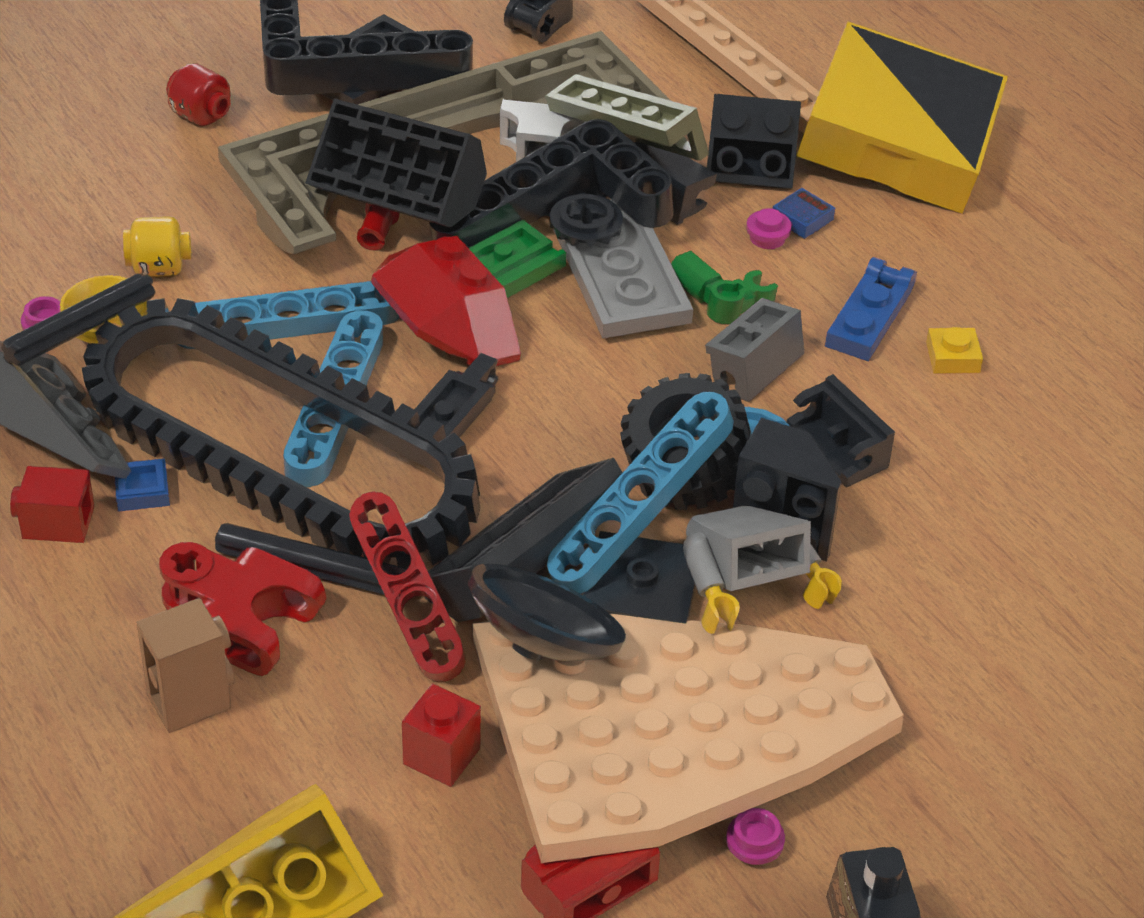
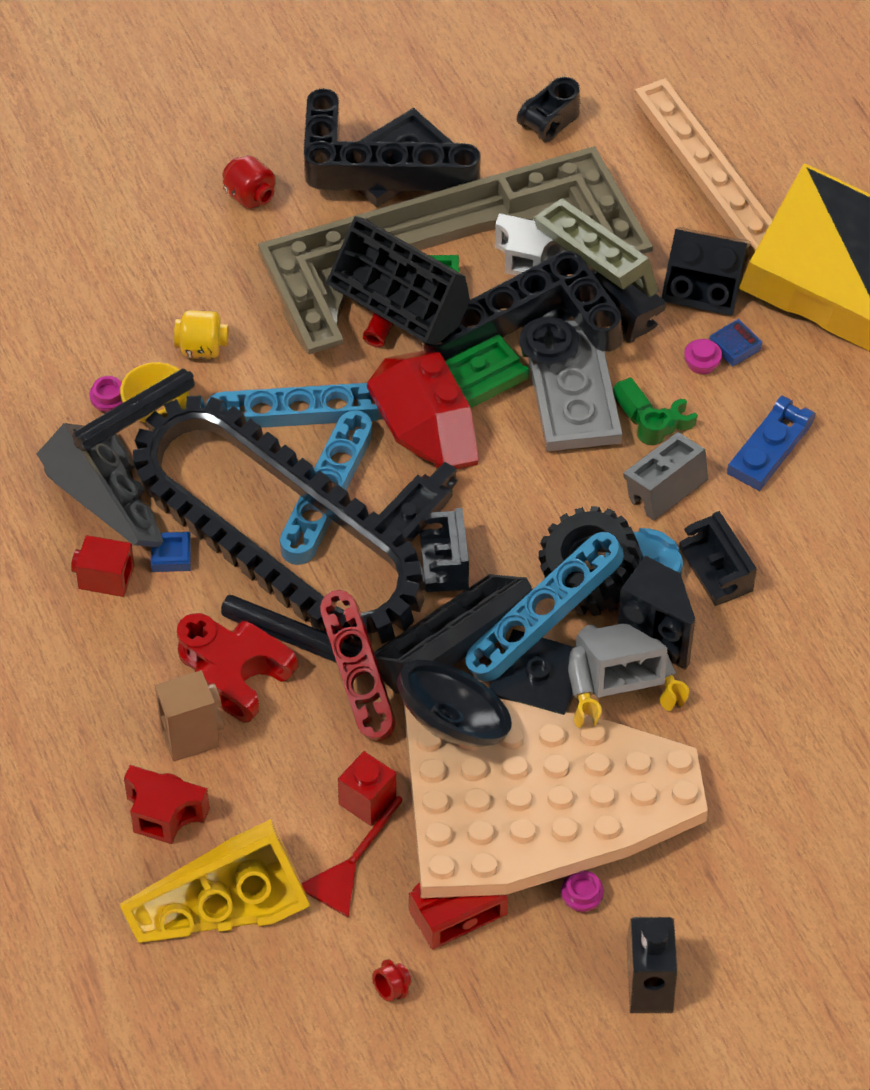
camera: 10 degrees right, 10 degrees up
(161, 782) = (163, 803): none -> red brick
(414, 867) = (336, 884): none -> red piece
(501, 451) = (445, 552): none -> black hinge
(954, 350) = (830, 489): yellow plate -> none

